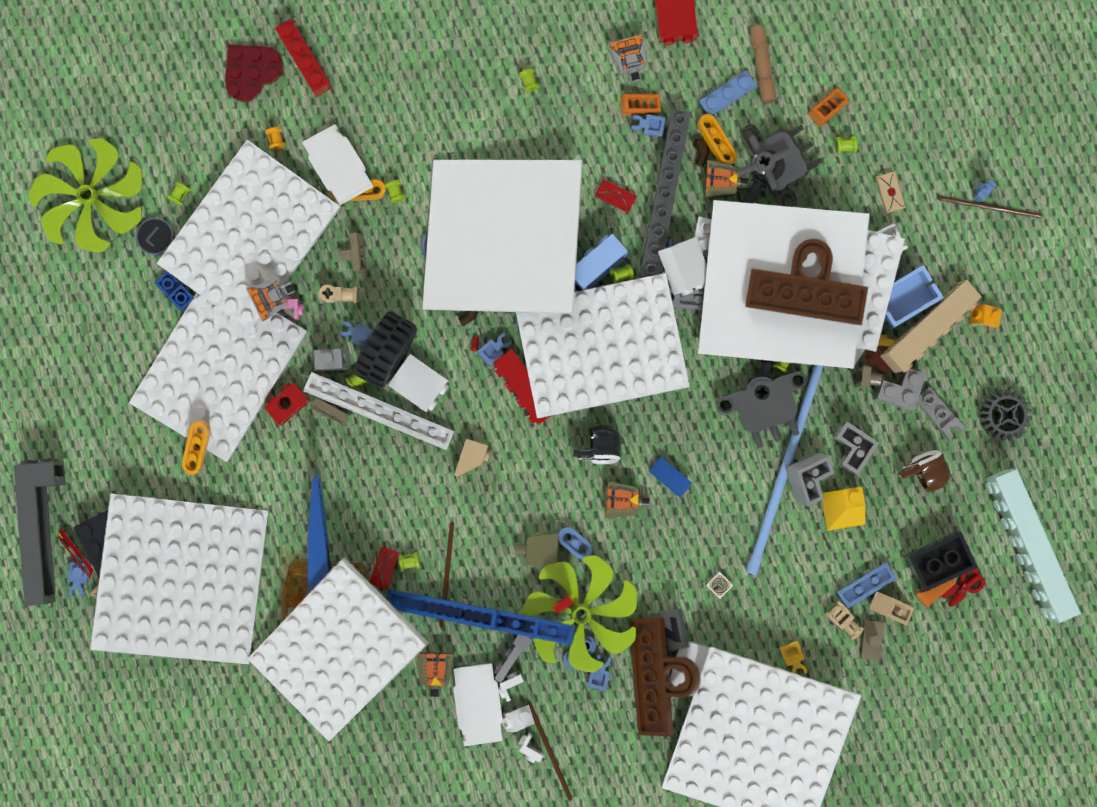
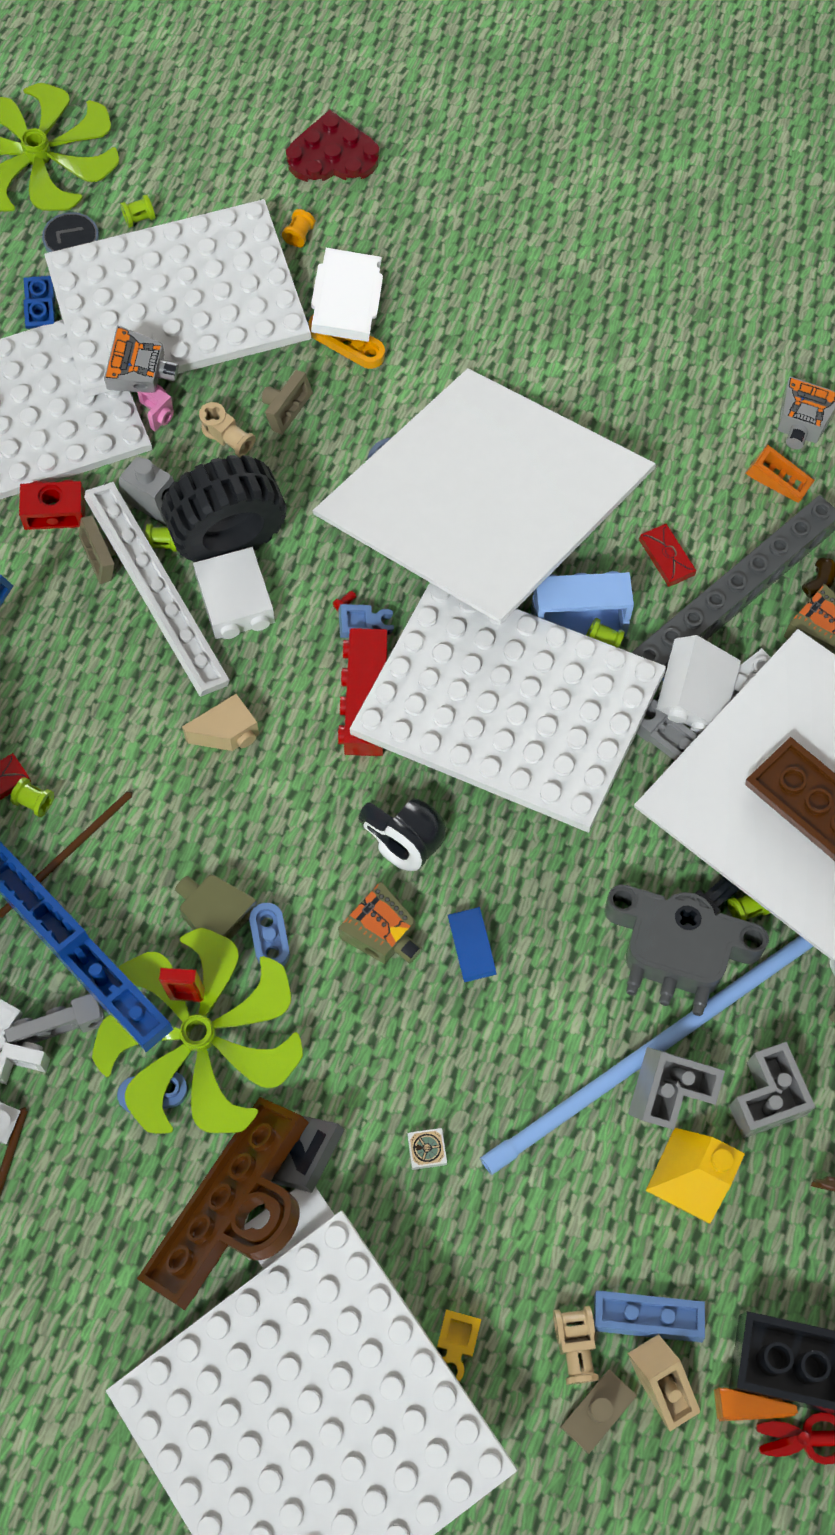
camera: 35 degrees right, 20 degrees down
(303, 58) = (402, 171): red brick -> none
(395, 191) = (391, 369): lime bush -> none
(468, 317) = (369, 564): dark brown arm -> none
(529, 80) = (656, 361): lime bush -> none
(599, 678) = (151, 1149): medium blue plate -> none
(652, 125) = (775, 506): medium blue plate -> none

